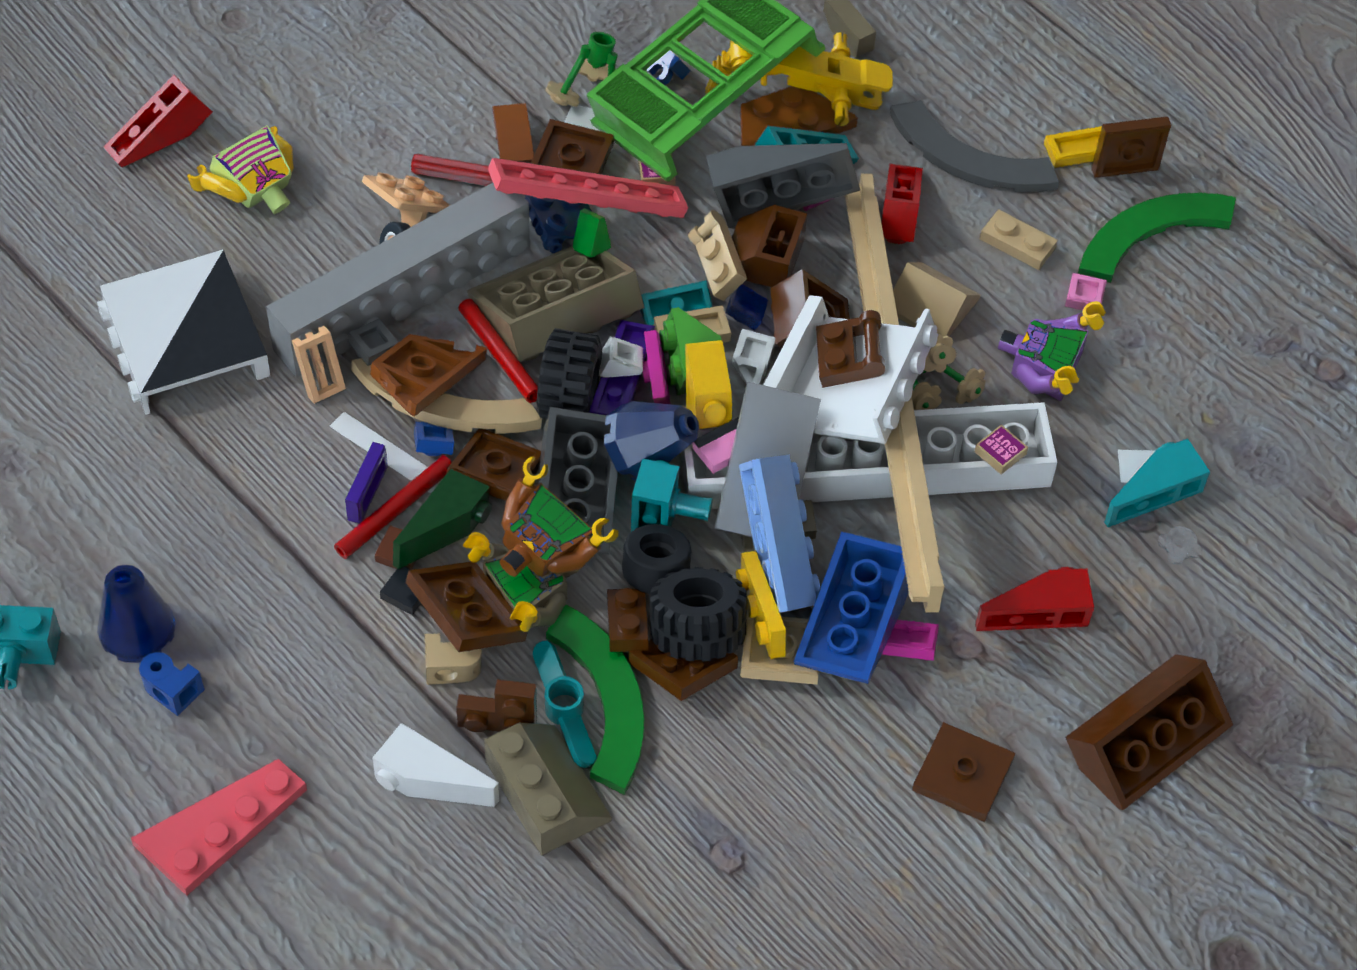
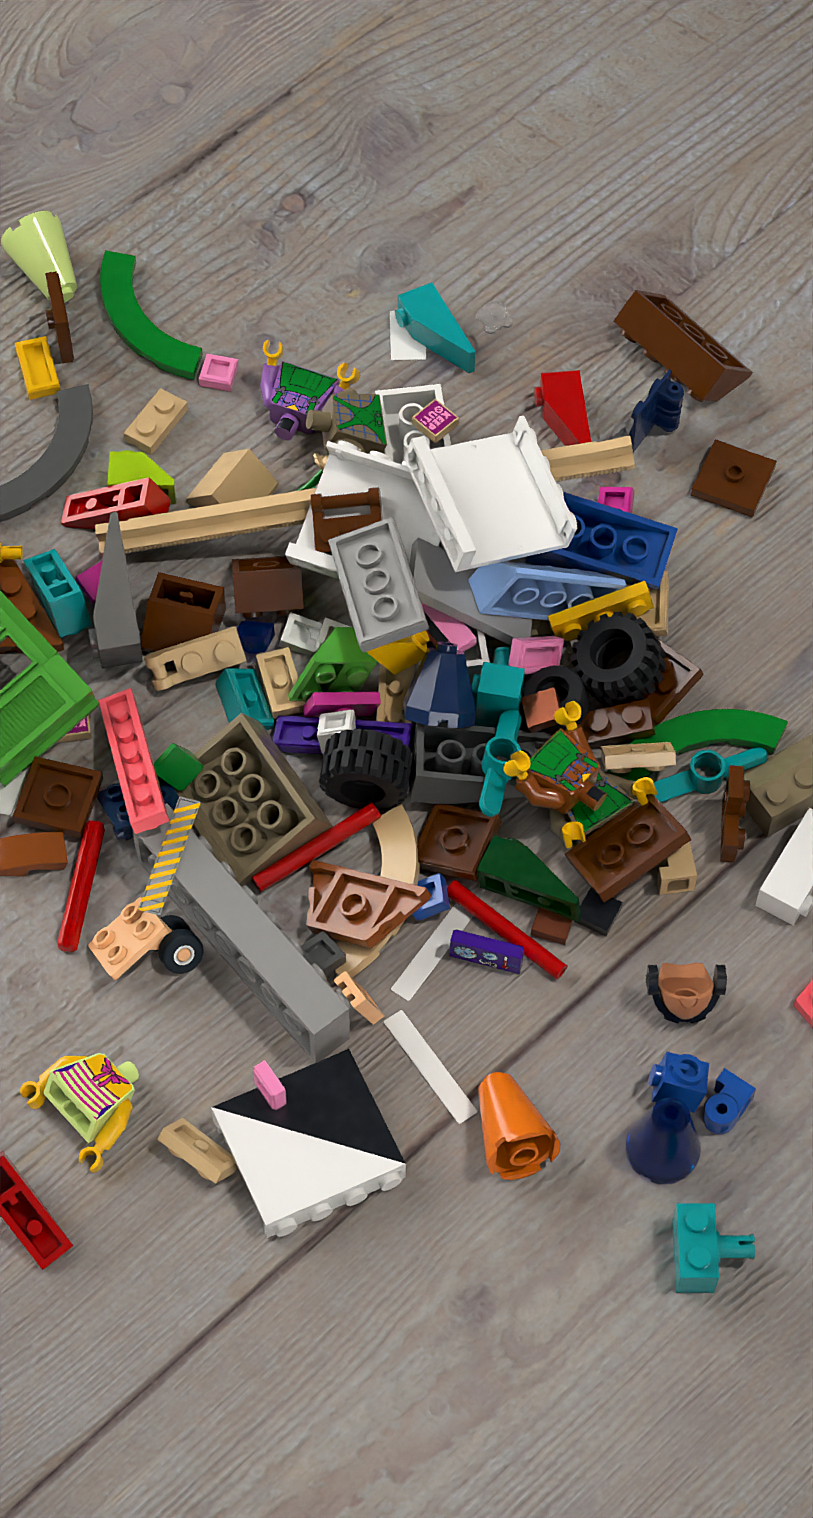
camera: 90 degrees left, 5 degrees up
(170, 485) = (513, 1129): none -> orange cone
(193, 633) = (680, 1078): none -> blue brick
(196, 241) = (198, 1150): none -> tan plate
(228, 282) = (269, 1085): none -> bright pink tile
(256, 439) = (430, 1067): none -> white sticker
(299, 646) = (685, 990): none -> nougat cap
(470, 202) = (169, 856): none -> sticker
(512, 466) = (501, 745): none -> teal piece
(578, 625) = (648, 755): none -> tan plate
(632, 529) = (540, 709): none -> copper tile
(705, 534) = (535, 653): none -> bright pink tile
(755, 354) = (378, 584): none -> light grey tile
(853, 442) = (491, 498): none -> white panel
(939, 216) = (132, 466): none -> lime slope
(992, 375) = (351, 419): none -> dark tan torso
(1039, 675) = (659, 409): none -> dark blue hinge
(1214, 139) = (39, 249): none -> yellowish green cone

